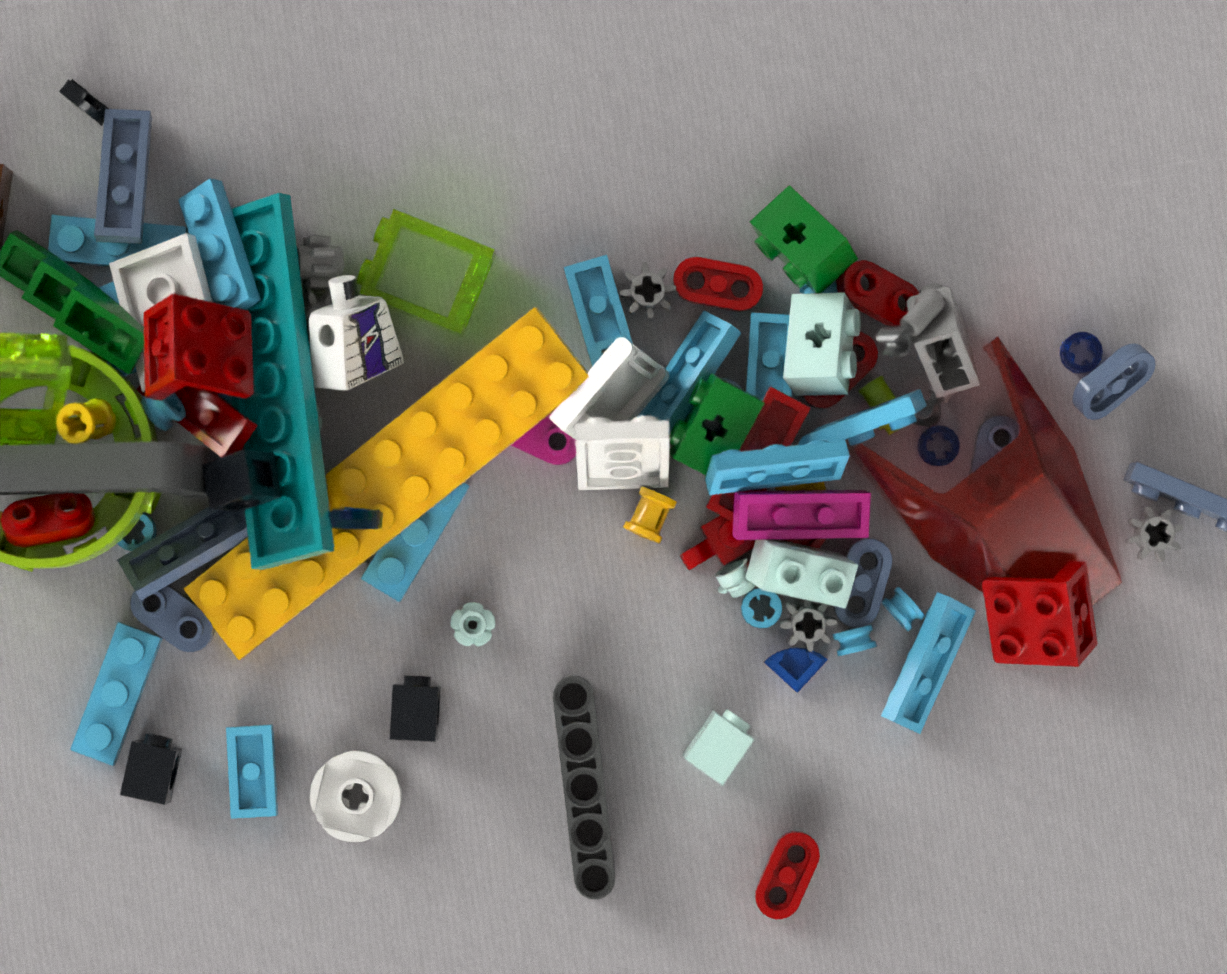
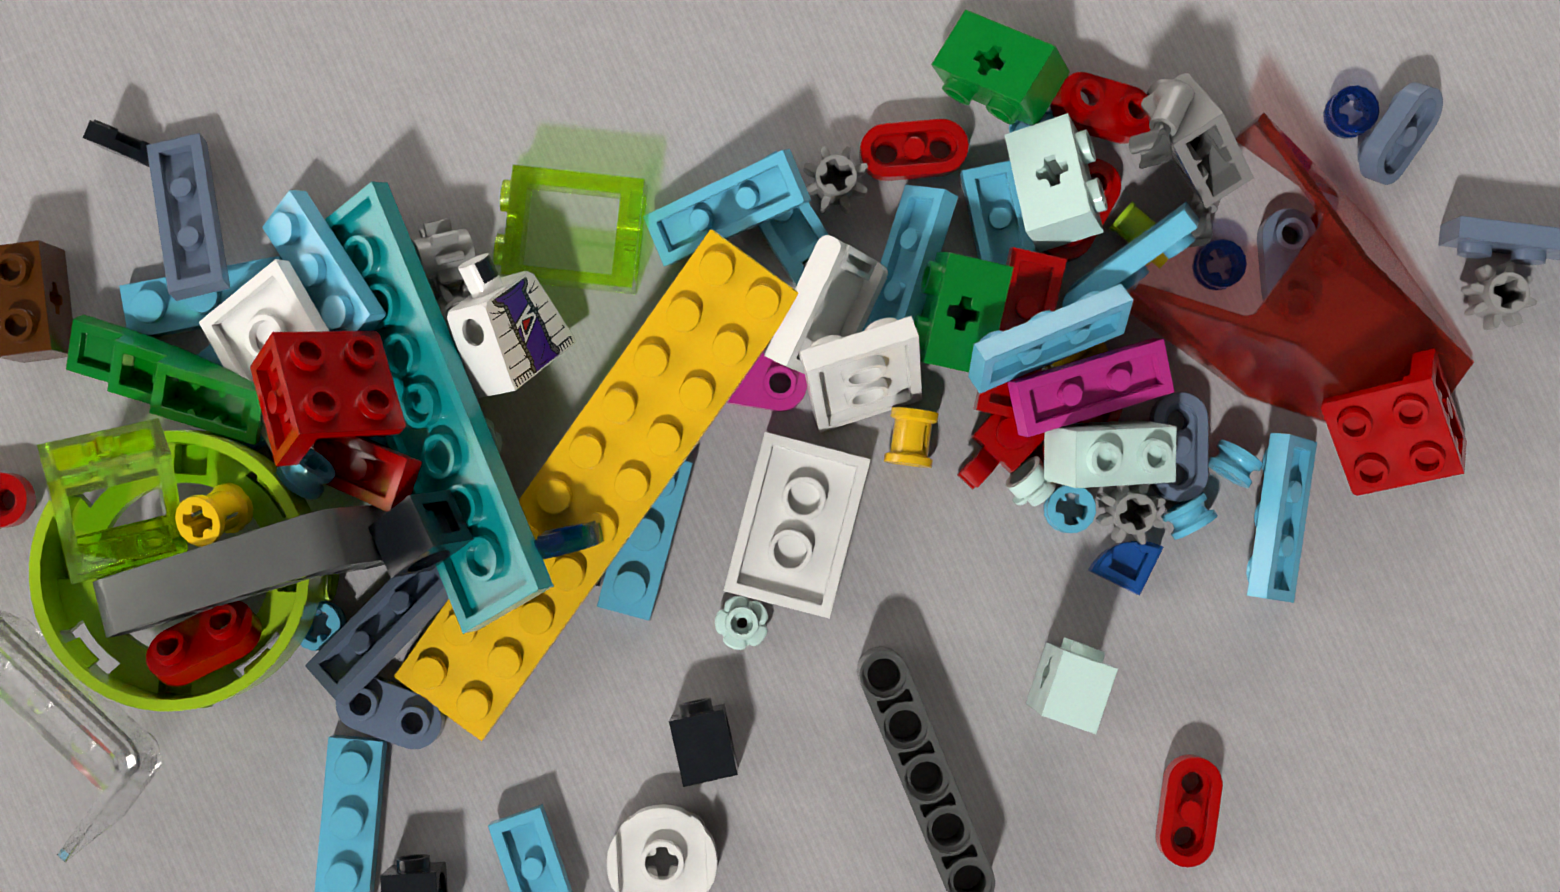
camera: 20 degrees left, 0 degrees up
(538, 558) = (797, 525): none -> white plate
(554, 290) = (728, 206): none -> medium azure plate

